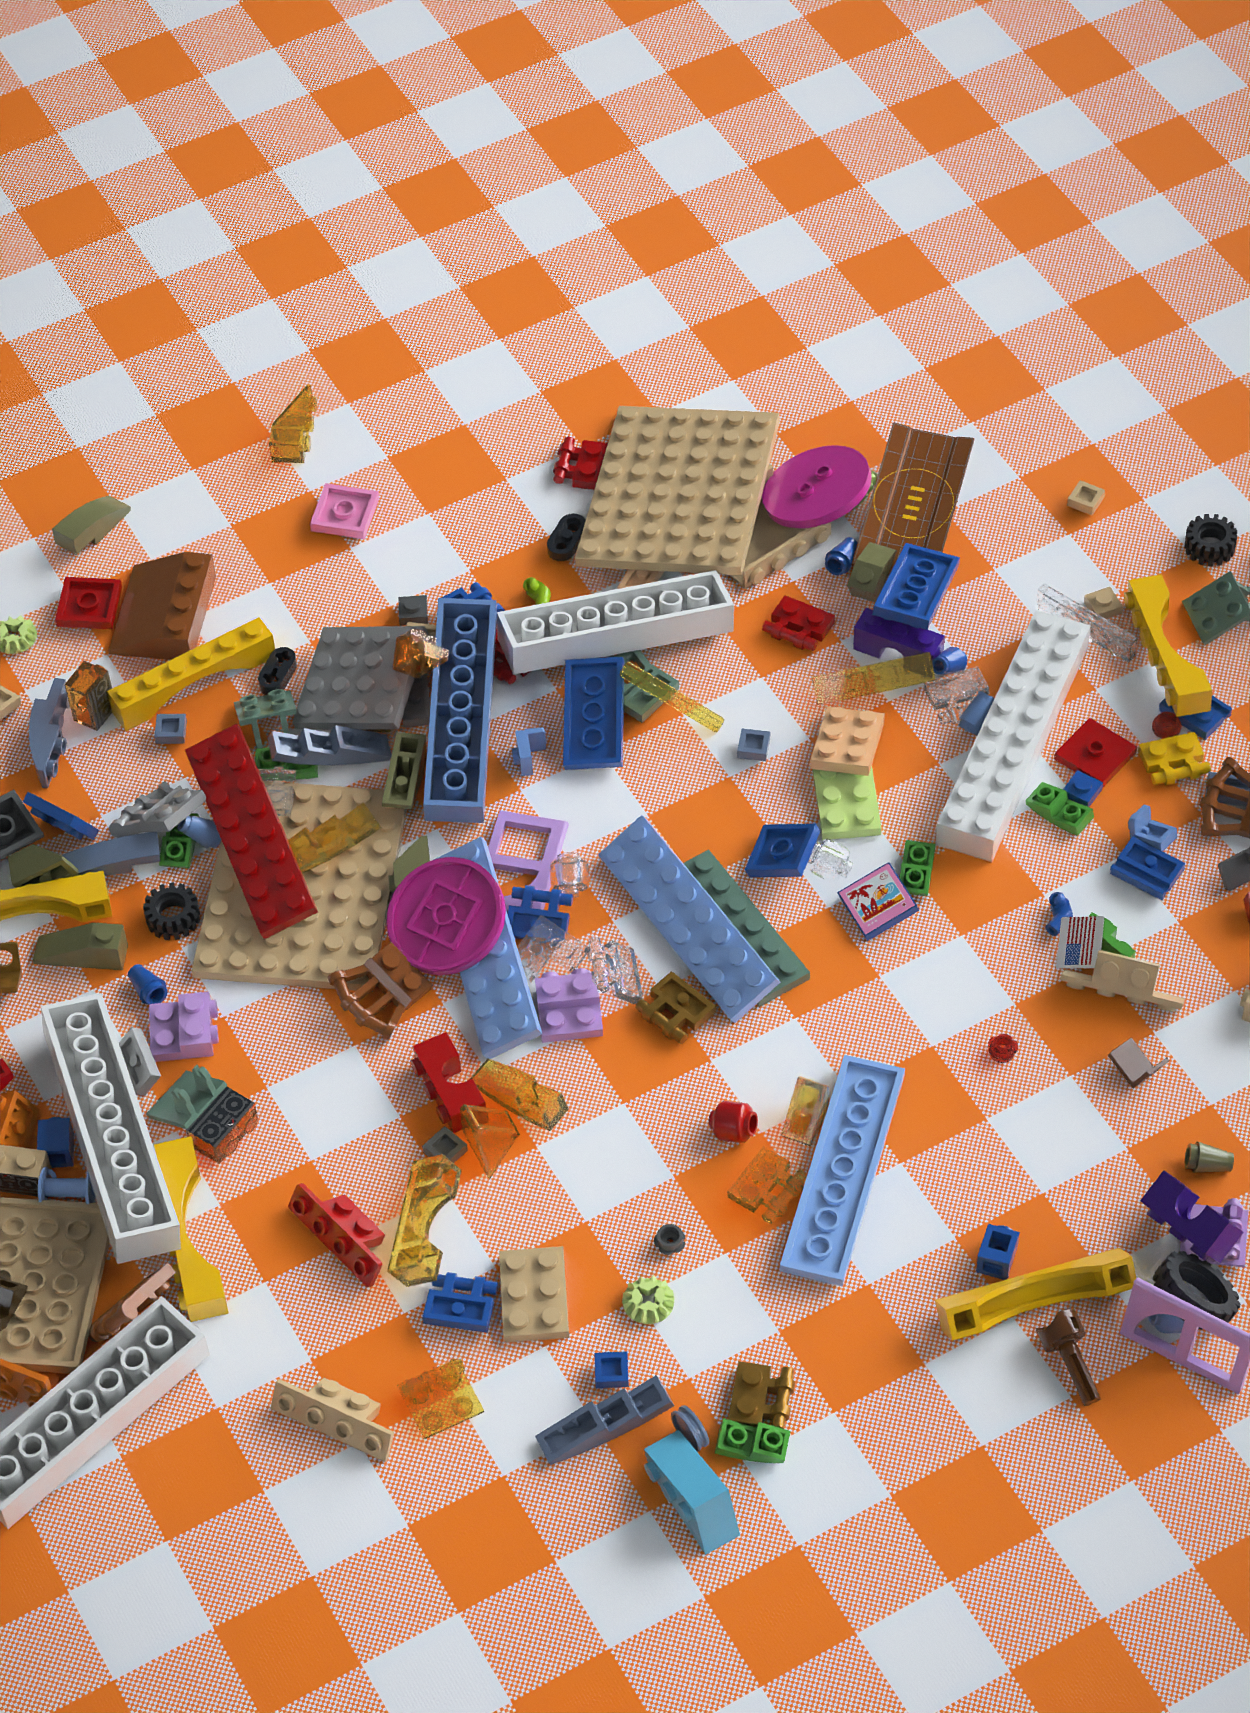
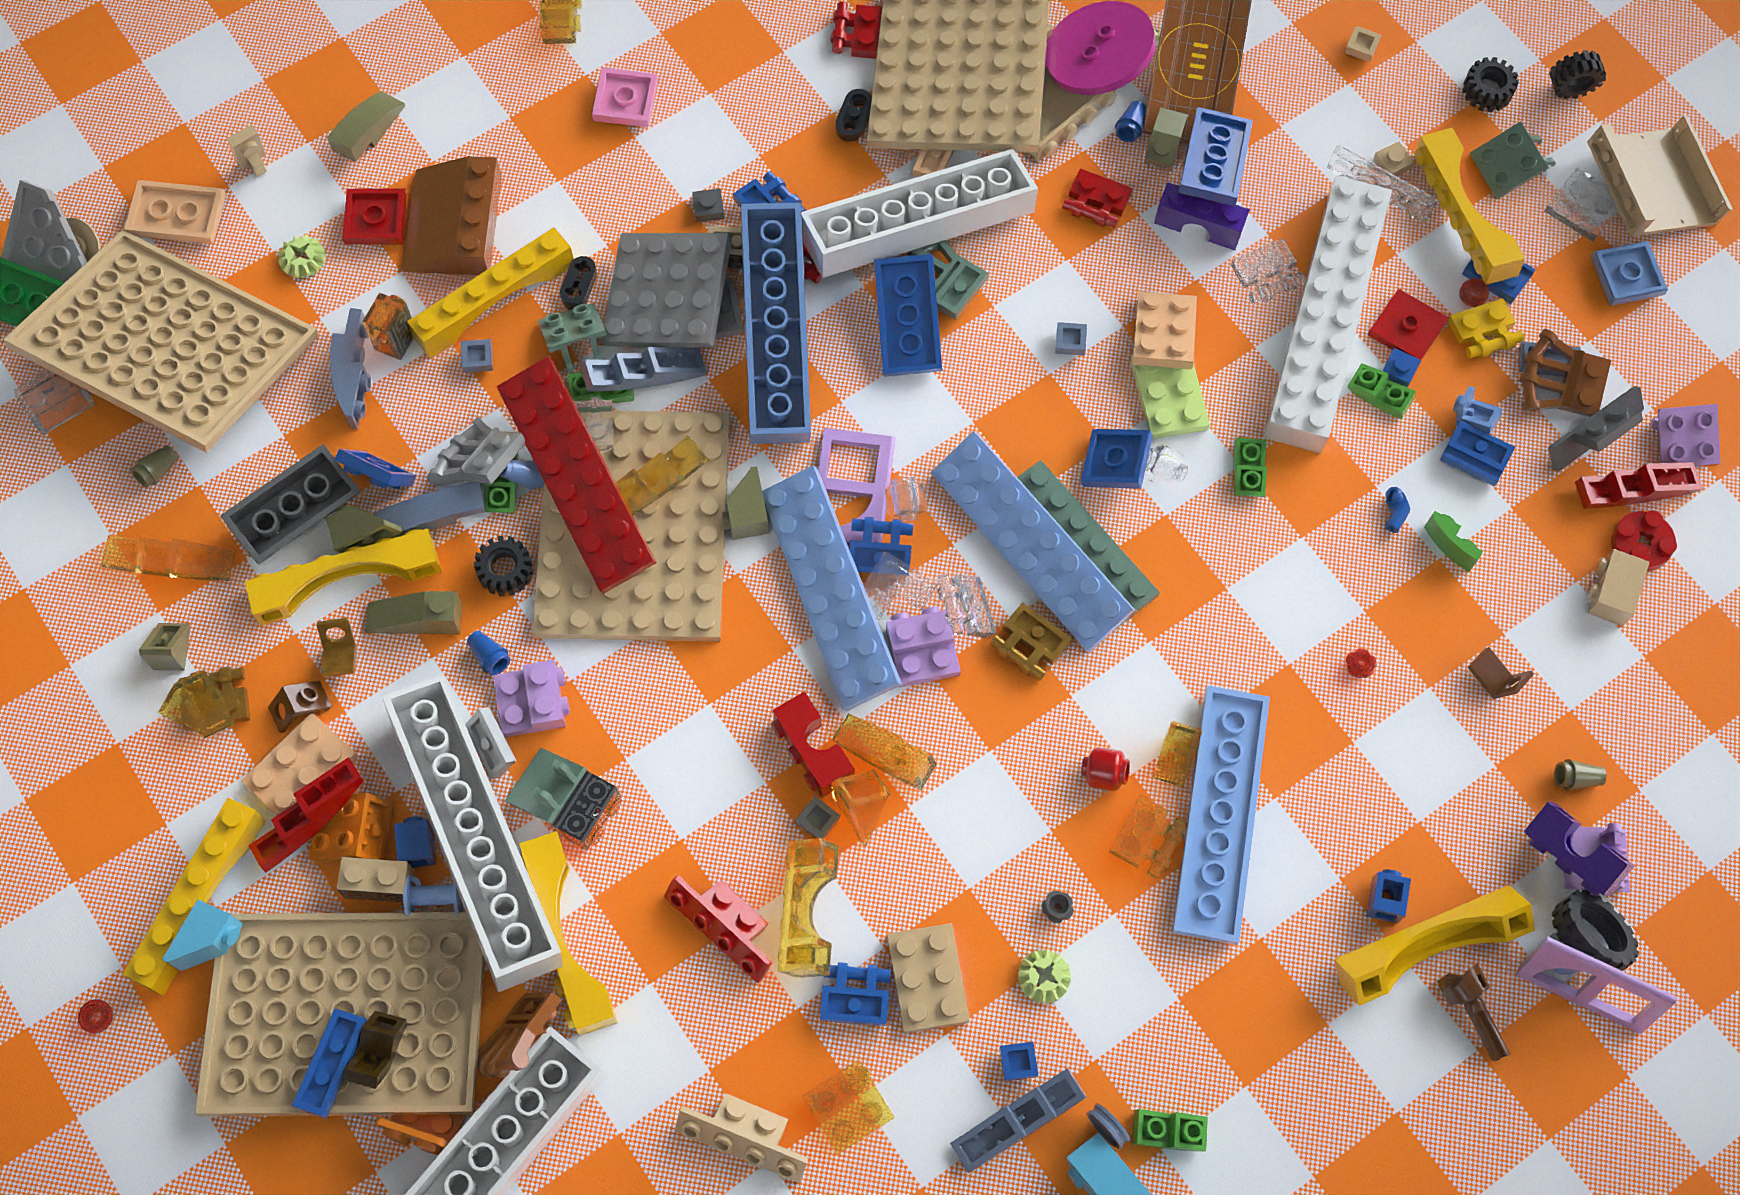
camera: 10 degrees left, 15 degrees up
(393, 976) = (742, 628): dark orange plate -> none
(405, 770) = (725, 395): olive slope -> none
(417, 653) = (726, 267): clear orange arch -> none
(446, 915) = (788, 559): dark pink plate -> none
(528, 741) = (841, 351): medium blue bracket -> none
(537, 590) = (834, 179): lime arm -> none
(671, 697) = (984, 292): clear yellow axle -> none
(750, 1395) = (1160, 1078): pearl gold plate -> none
(873, 678) = (1182, 259): clear yellow slope -> none
(878, 901) = (1218, 508): tile -> none
(950, 661) = (1255, 235): blue cone -> none
(976, 713) = (1290, 292): medium blue cone -> none
(1079, 941) = (1424, 542): sticker -> none
(1125, 977) = (1474, 580): tan bracket -> none

